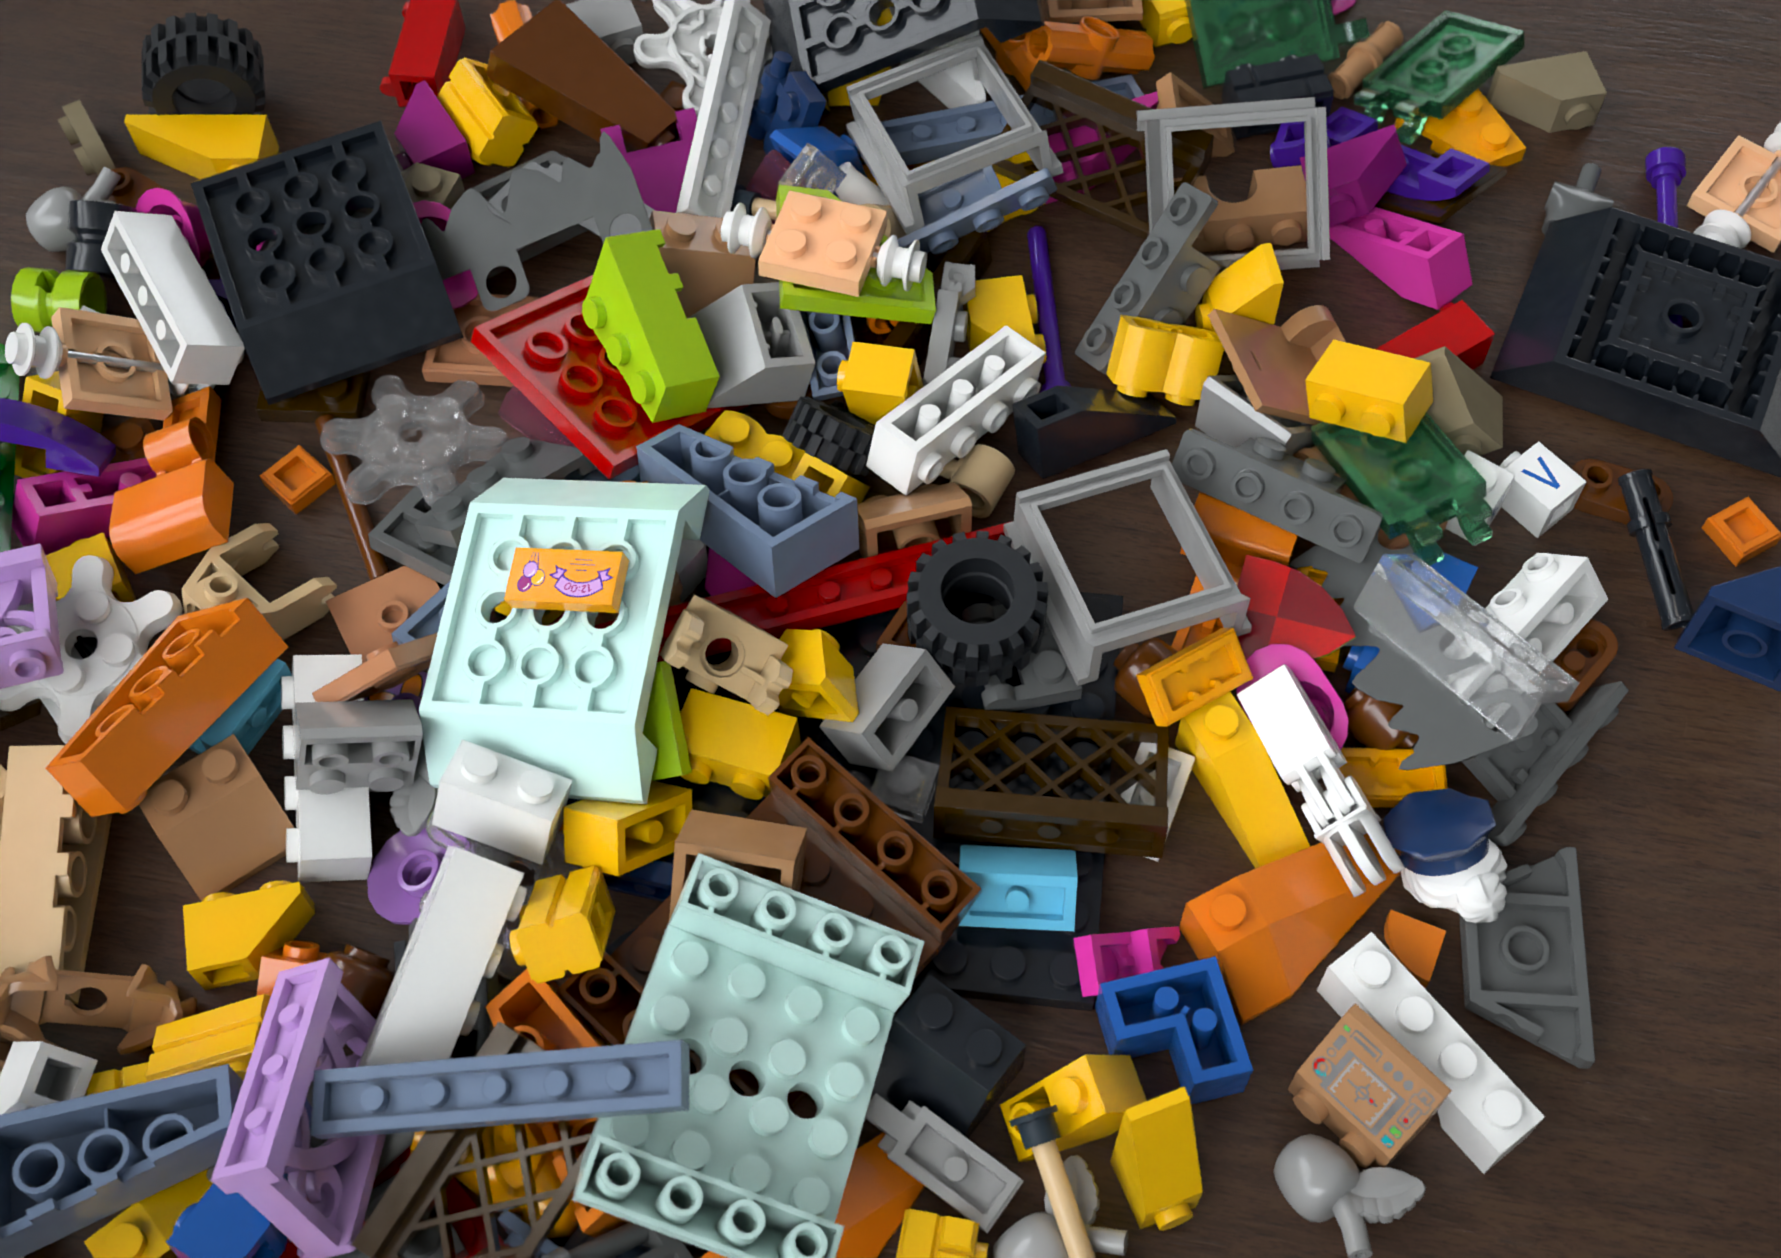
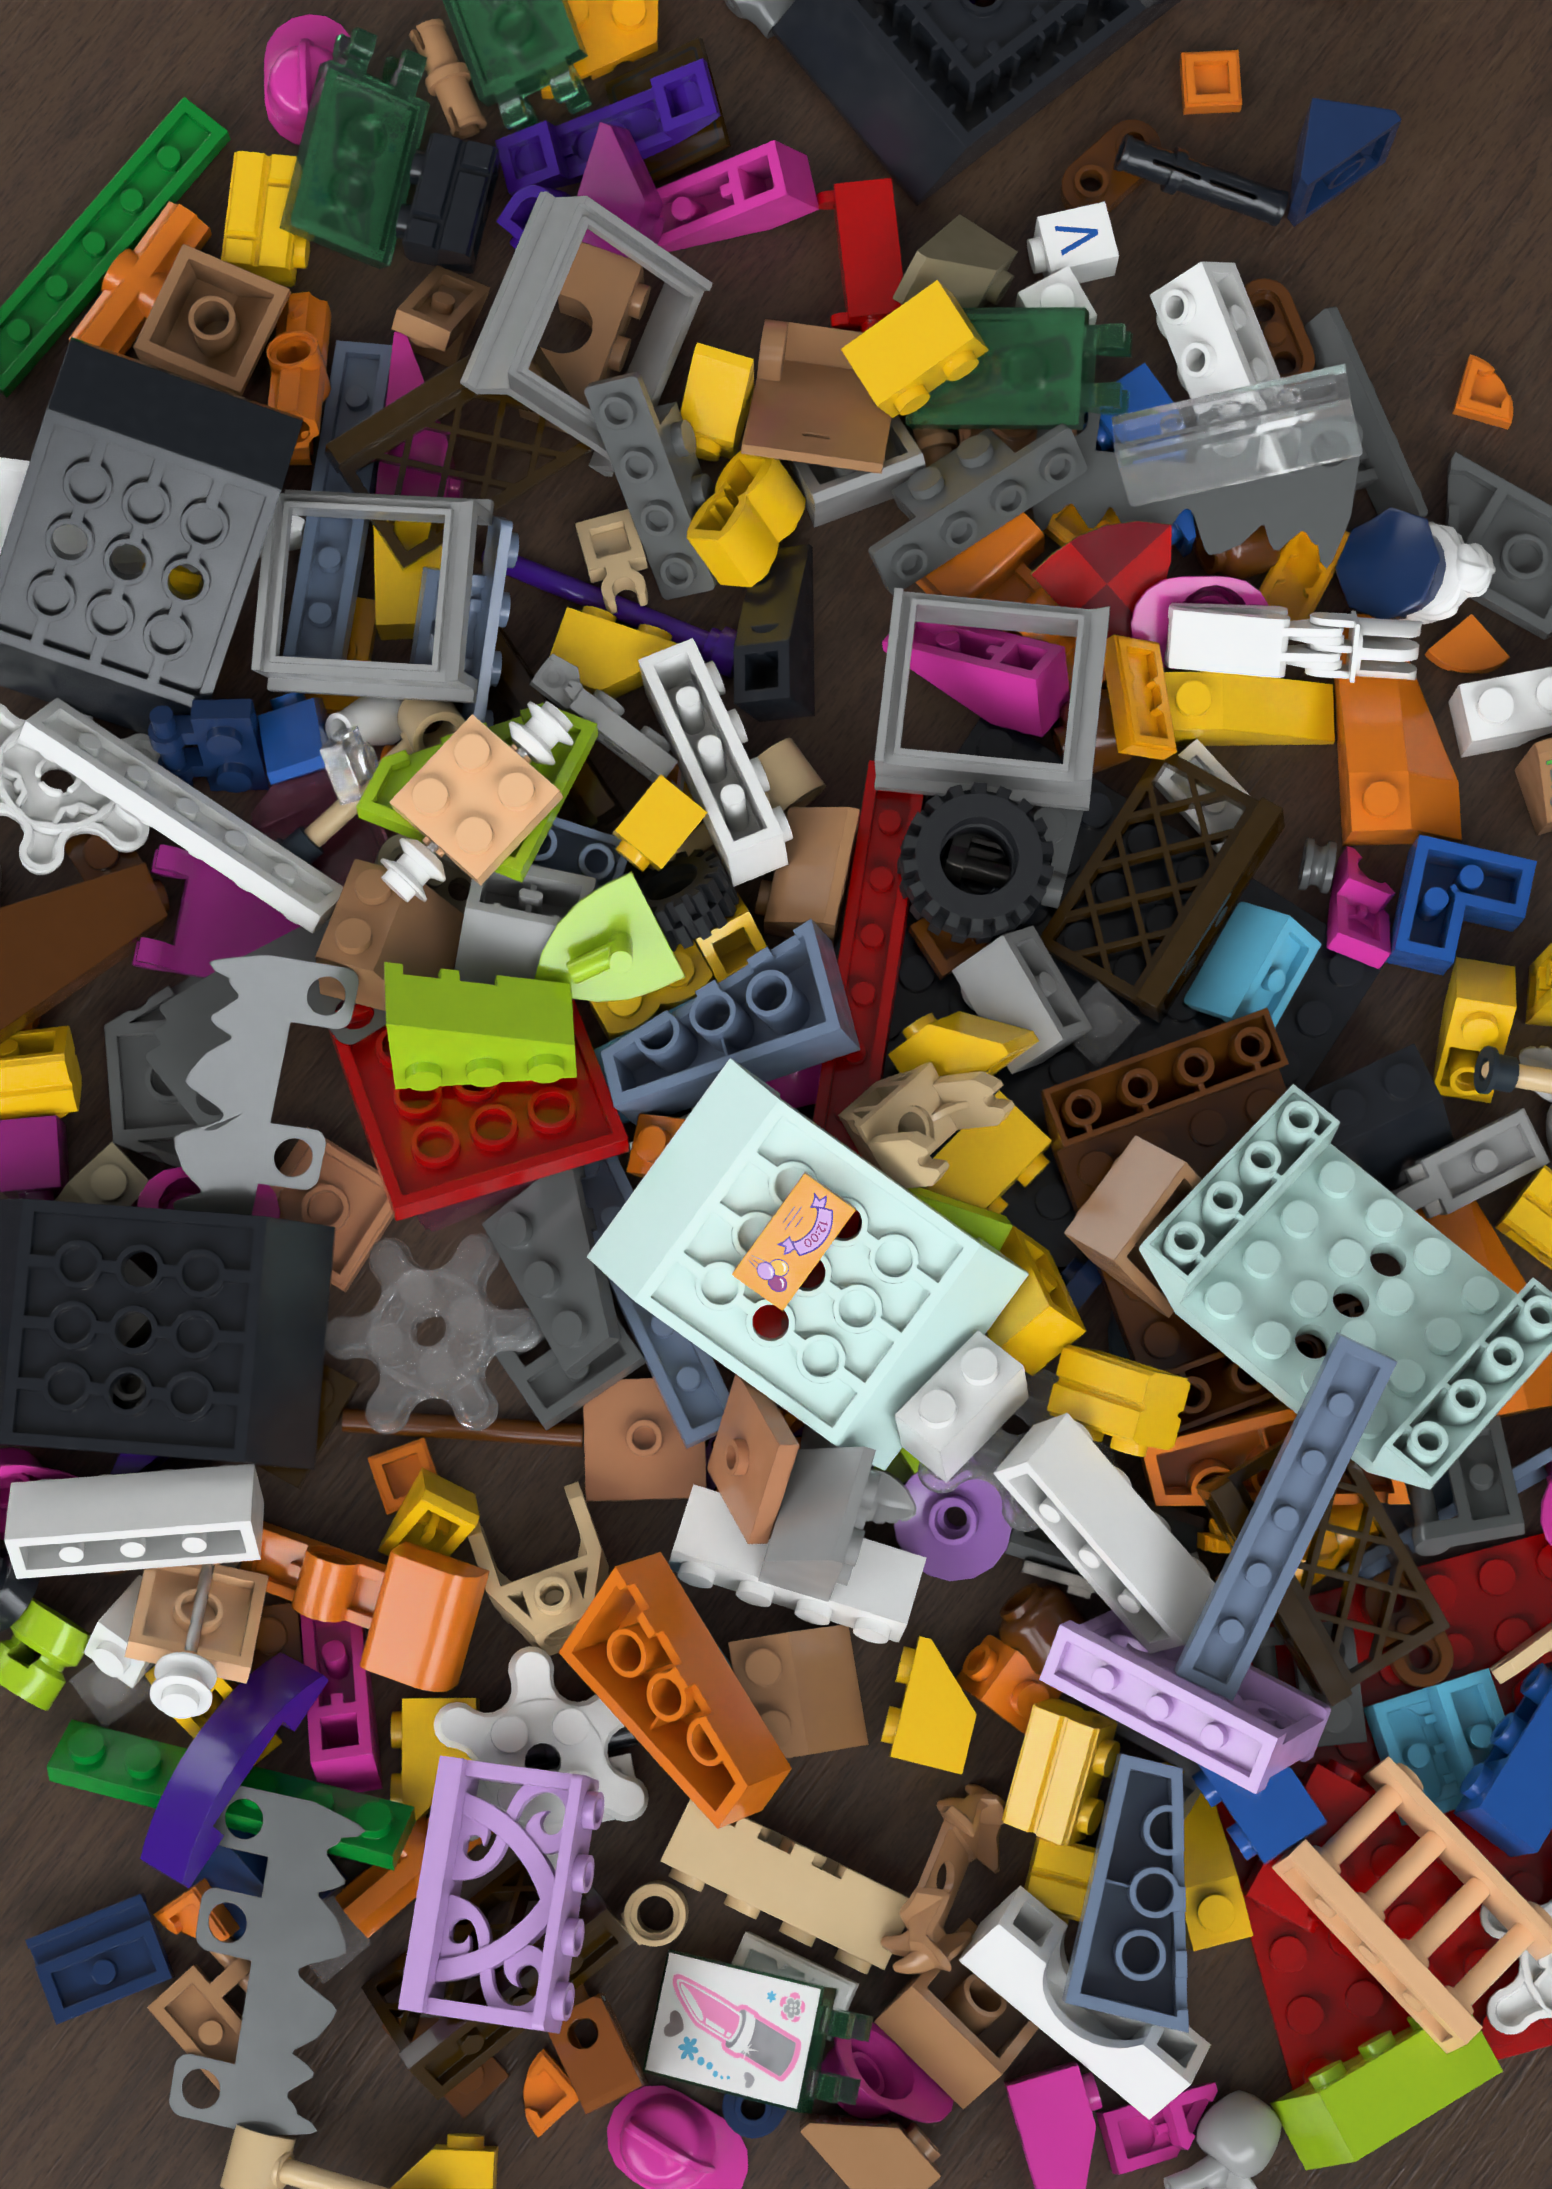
camera: 65 degrees left, 20 degrees up
(266, 494) = (433, 1516): none -> yellow slope
(764, 391) = (610, 946): none -> lime shield
(1078, 296) = (614, 555): none -> tan plate
(1145, 905) = (1317, 865): none -> dark grey bush
(1149, 562) = (994, 673): none -> dark pink slope
(1641, 855) = (1483, 395): none -> orange tile

